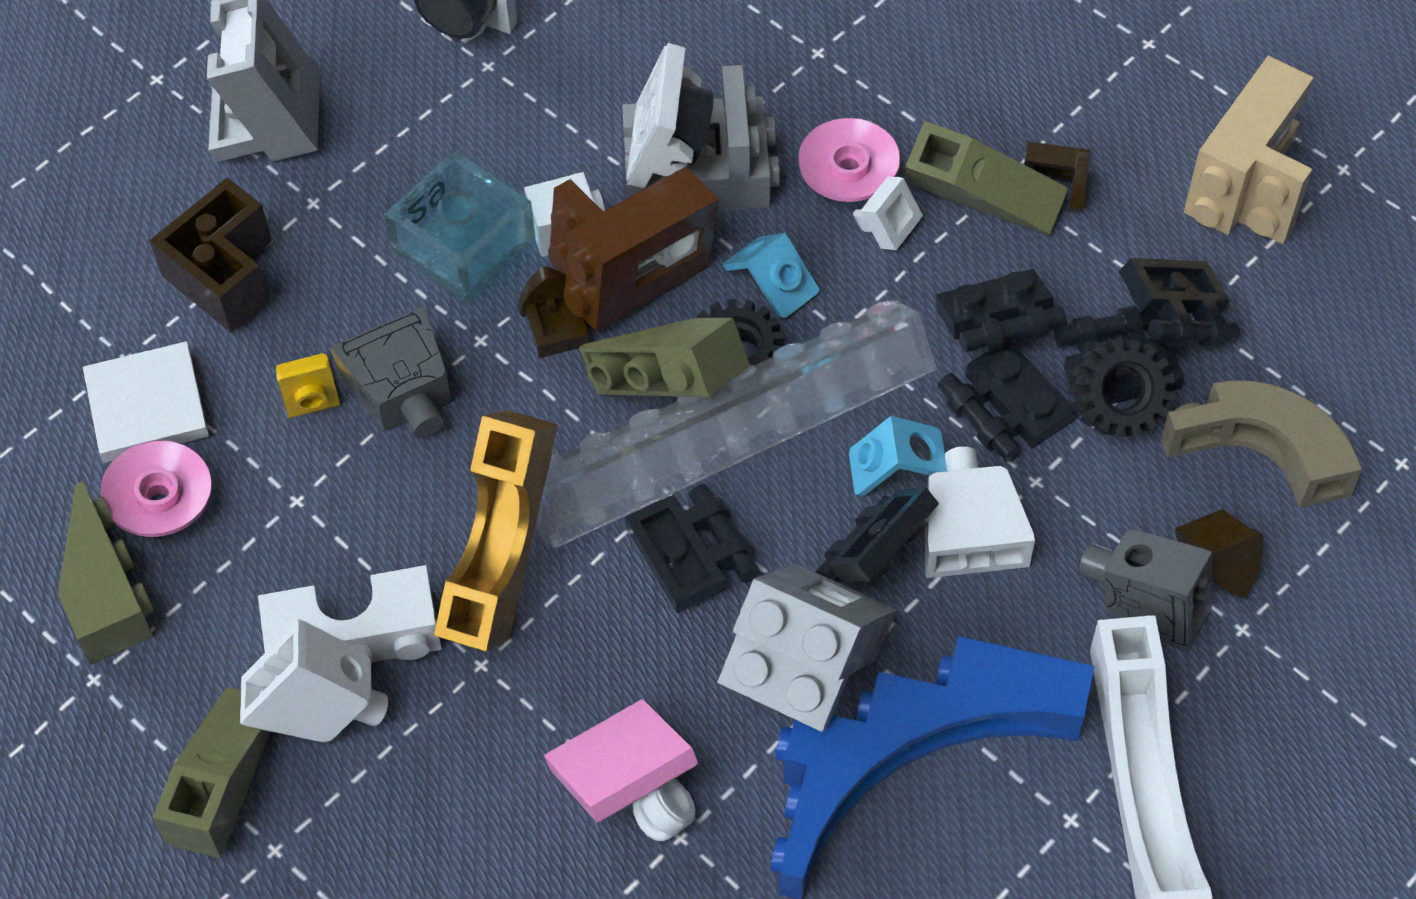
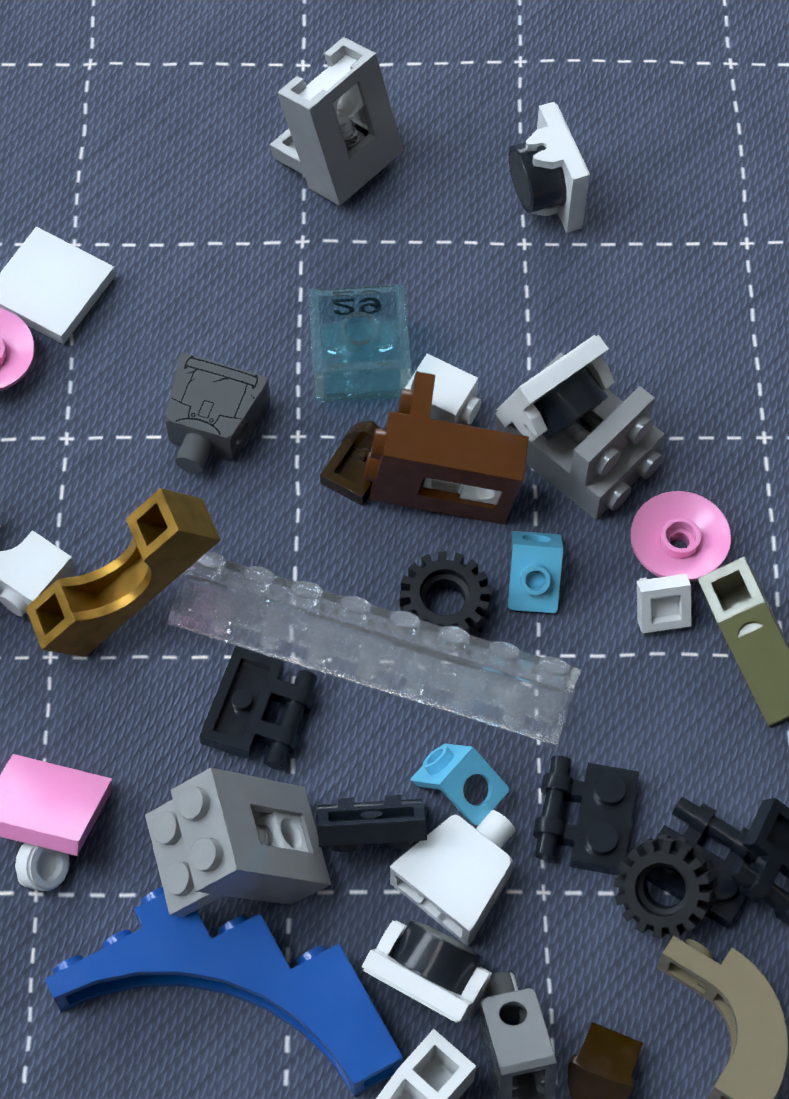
camera: 45 degrees right, 5 degrees up
(211, 254) = (186, 215): dark brown brick -> none
(307, 385) = (147, 370): yellow bracket -> none
(668, 360) = (375, 567): olive slope -> none
(1000, 311) = (654, 747): black plate -> none
(1042, 588) = (430, 969): none -> piece

